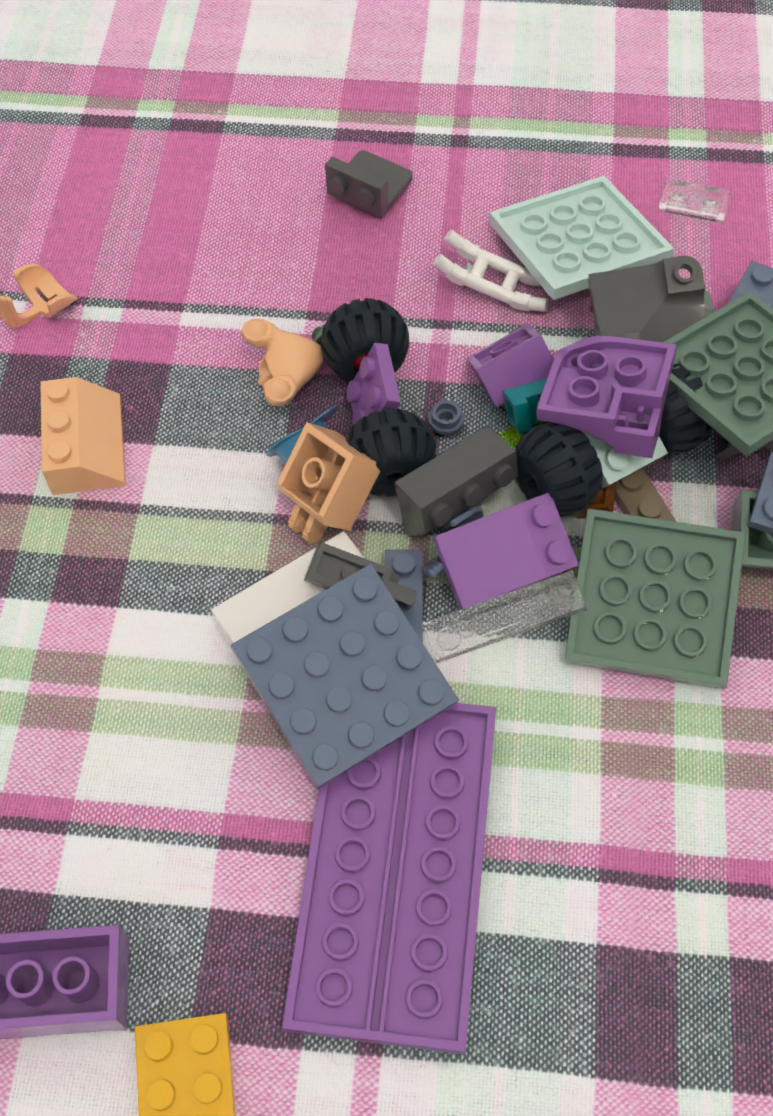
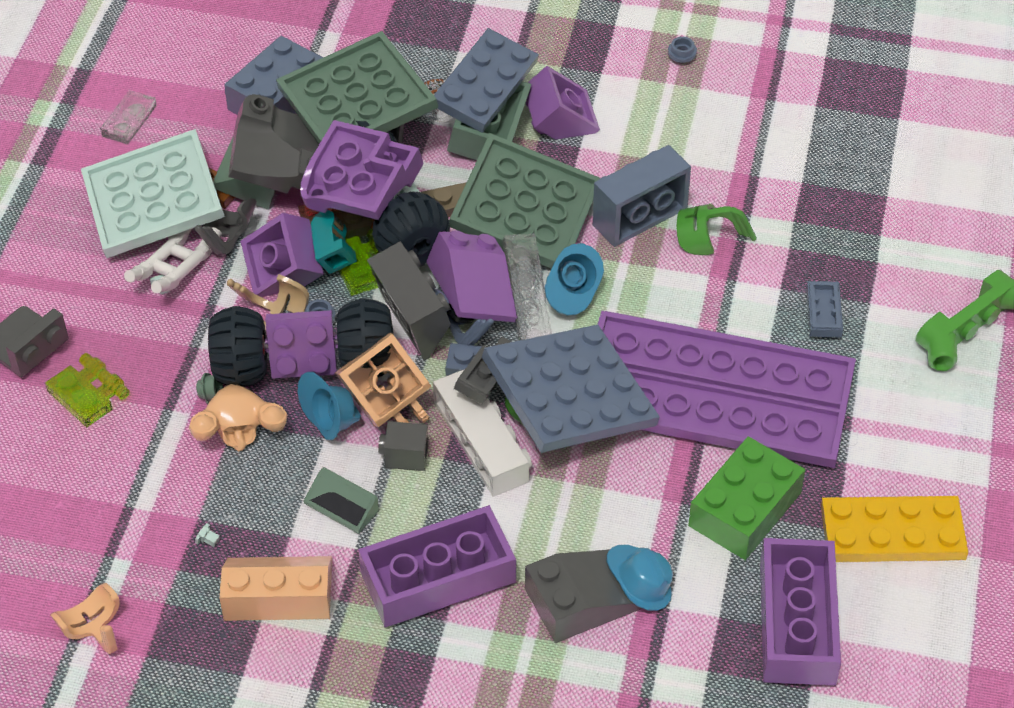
camera: 85 degrees left, 10 degrees down
(75, 733) = (575, 592): none -> dark grey slope
(95, 574) = (437, 566): none -> medium lavender brick
(100, 792) = (642, 575): none -> dark azure piece
(146, 373) = (207, 536): none -> light aqua piece
(193, 479) = (341, 500): none -> sand green slope
(212, 909) = (746, 497): none -> bright green brick
(264, 524) = (405, 446): none -> dark grey brick
(310, 240) = (79, 396): none -> clear neon green plate
(422, 380) = (298, 296): none -> tan helmet
(533, 666) = (574, 279): none -> dark azure piece
(558, 1004) = (824, 309): none -> sand blue plate
(566, 312) = (230, 226): none -> dark grey helmet
(659, 809) = (698, 241): none -> bright green helmet
(696, 730) = (641, 195): none -> sand blue brick

